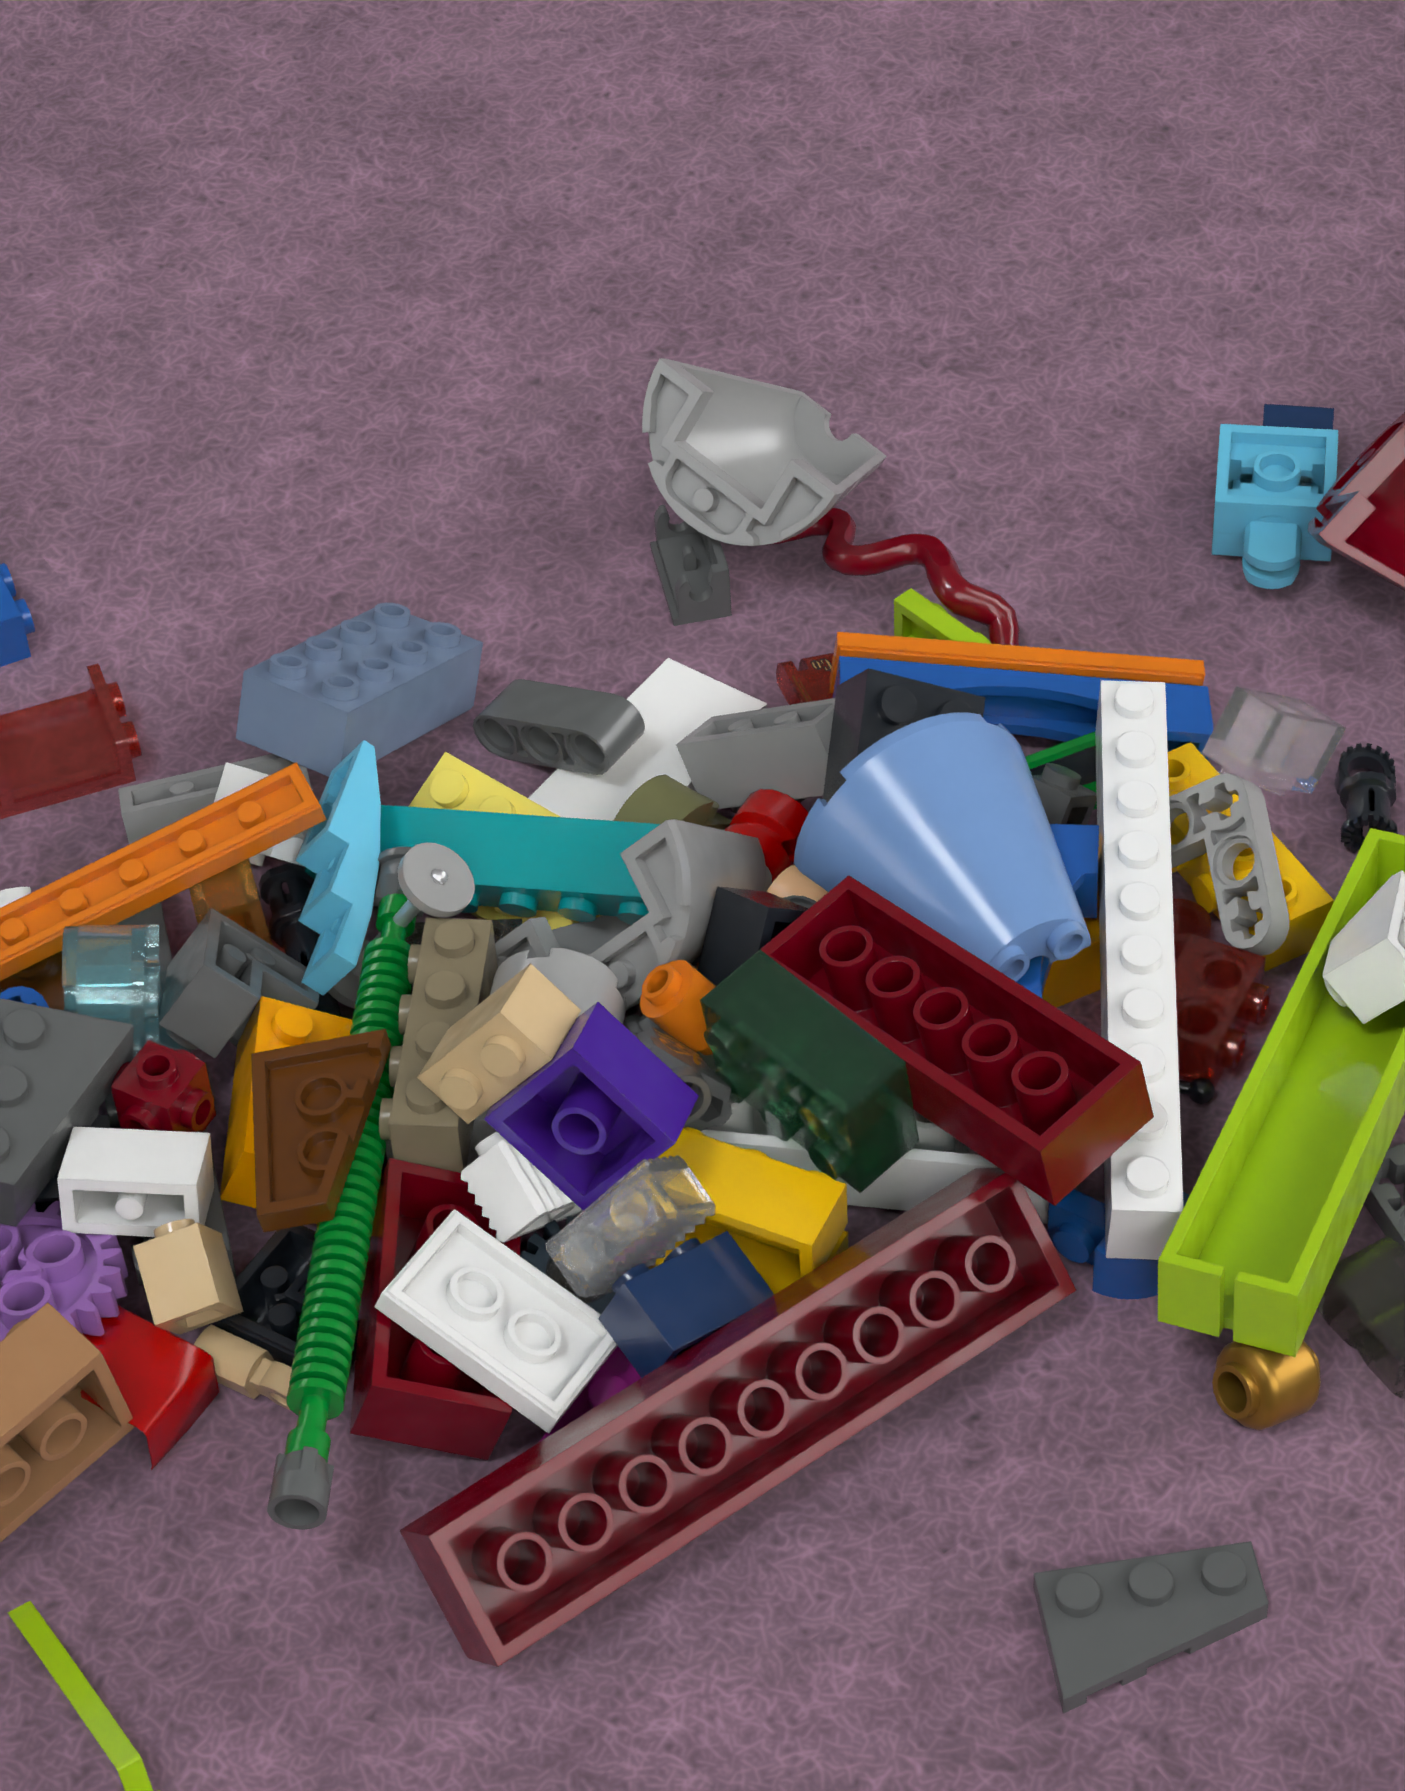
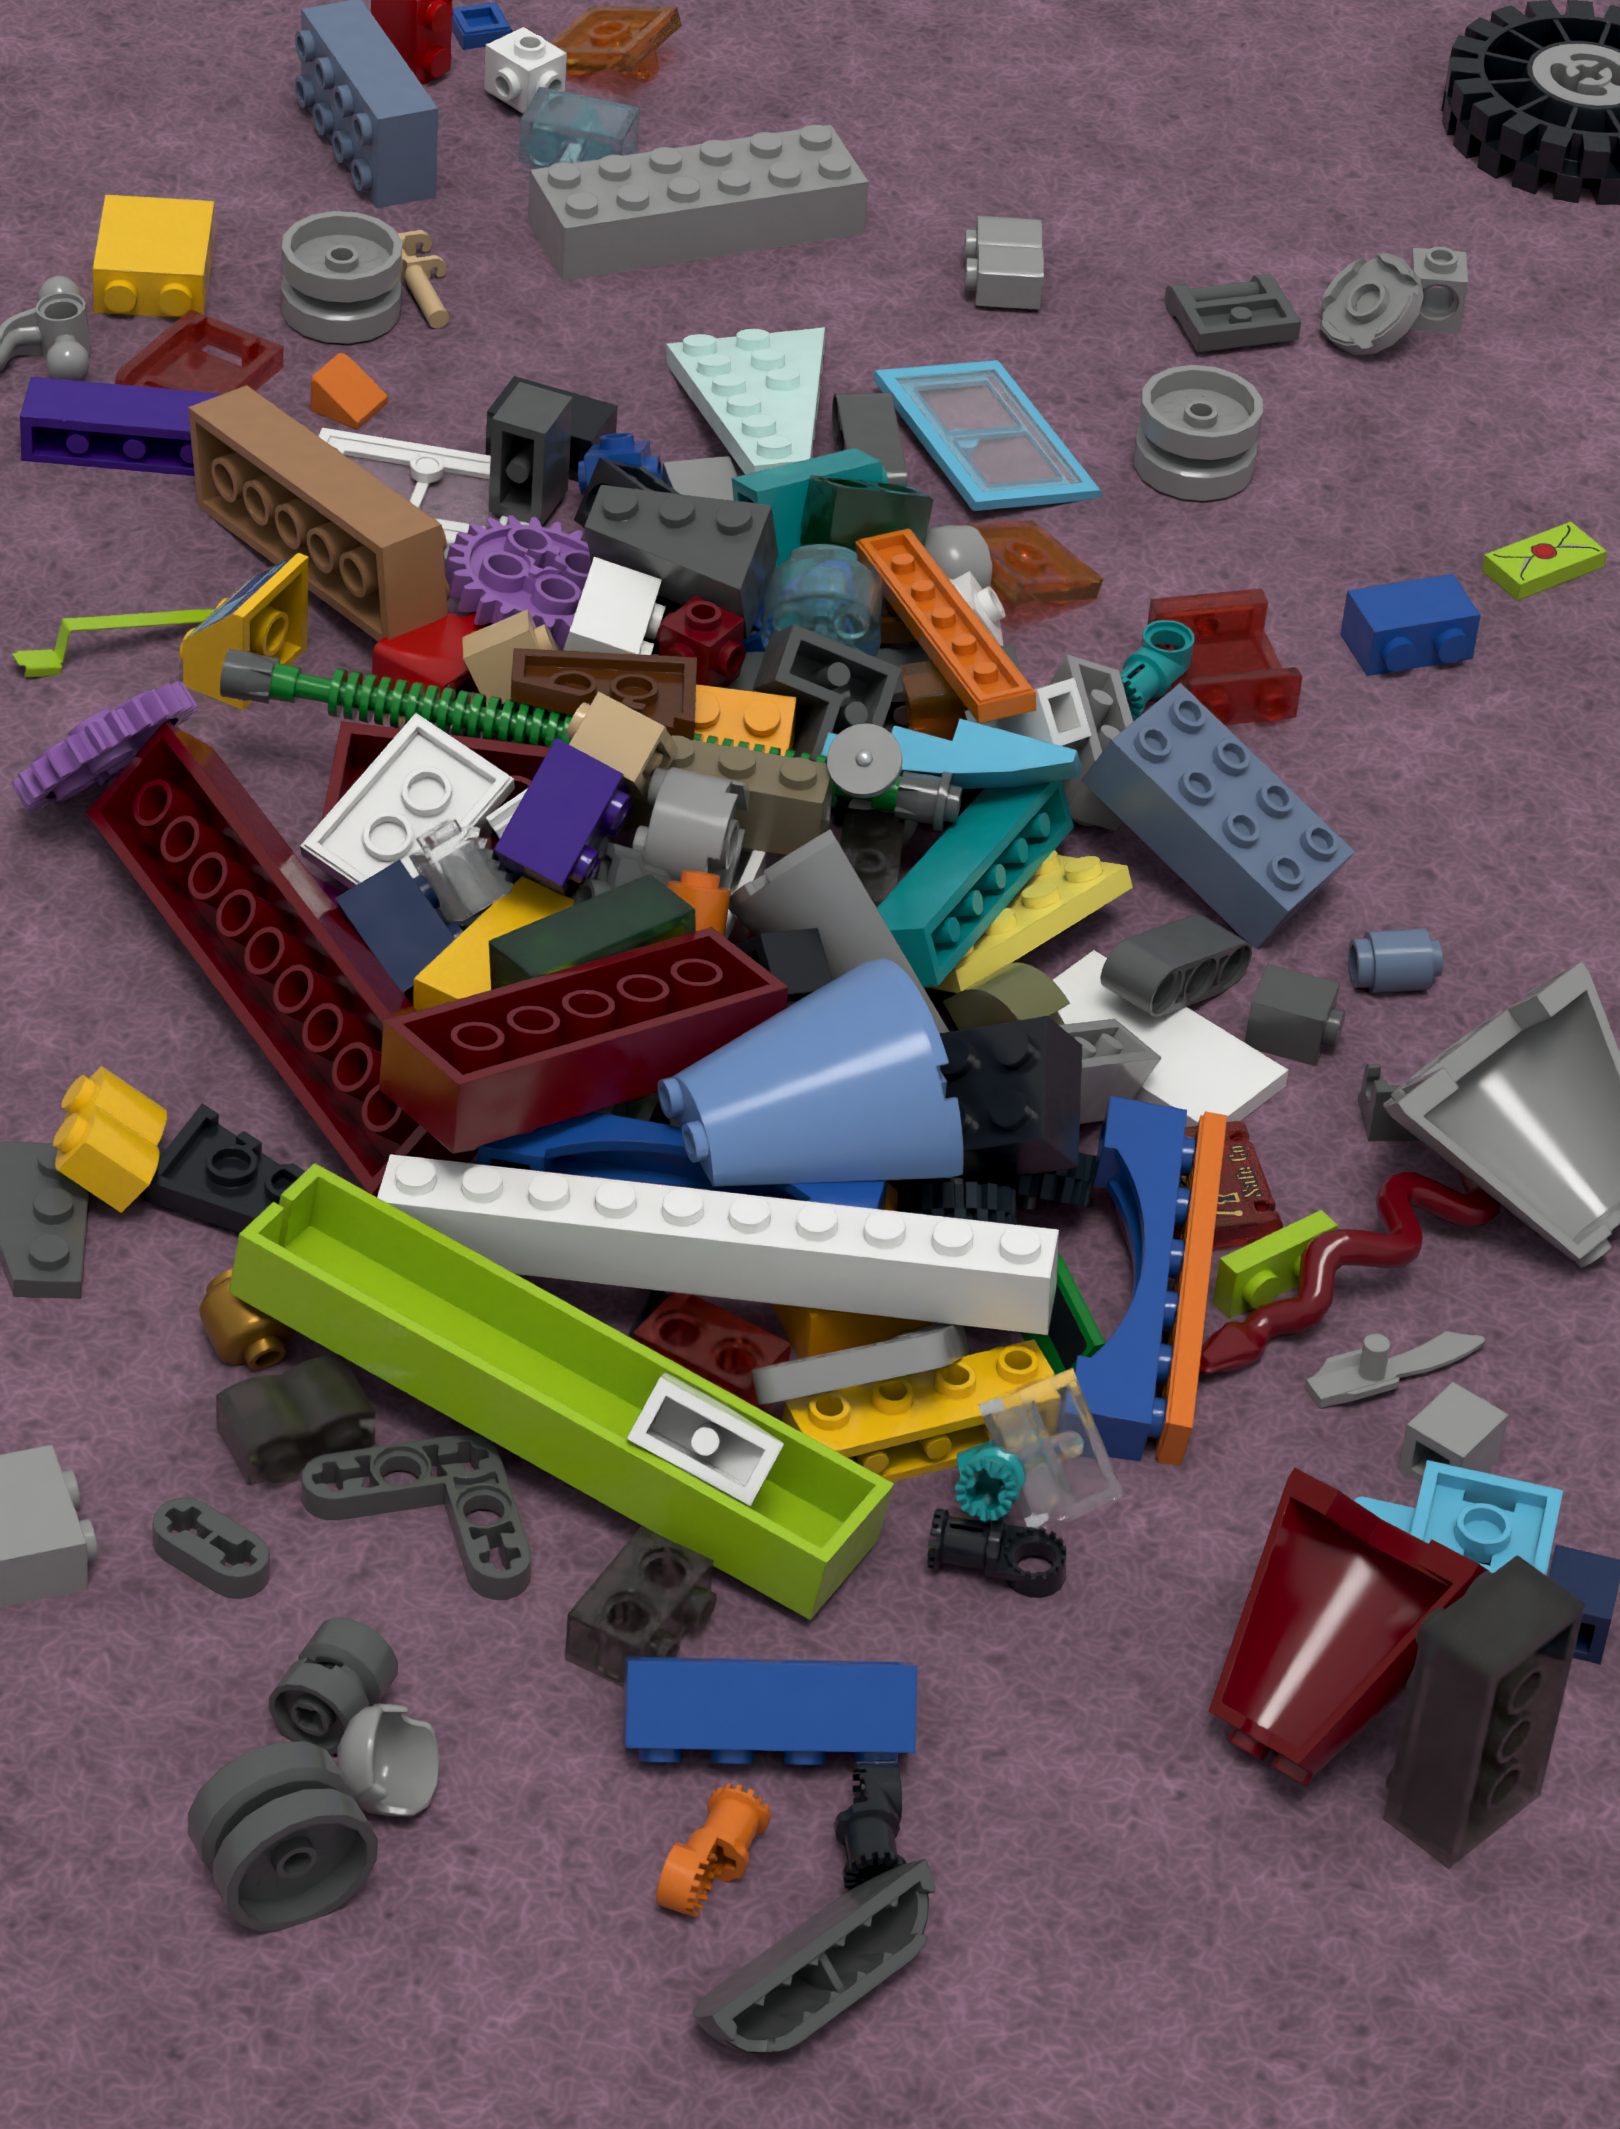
camera: 90 degrees right, 5 degrees down
(64, 794) = (1158, 666): none -> teal connector
(119, 1566) = (260, 617): none -> yellow slope
(416, 1639) = (101, 746): none -> medium lavender gear
(499, 595) = (1394, 960): none -> sand blue brick
(597, 650) = (1294, 1015): none -> dark grey brick
(1037, 1535) = (109, 1138): none -> yellow brick
(1042, 580) = (1372, 1372): none -> light grey piece
(1059, 1430) = (218, 1174): none -> black wing
(1131, 523) = (1454, 1431): none -> light grey brick
(1317, 781) = (988, 1480): none -> teal connector

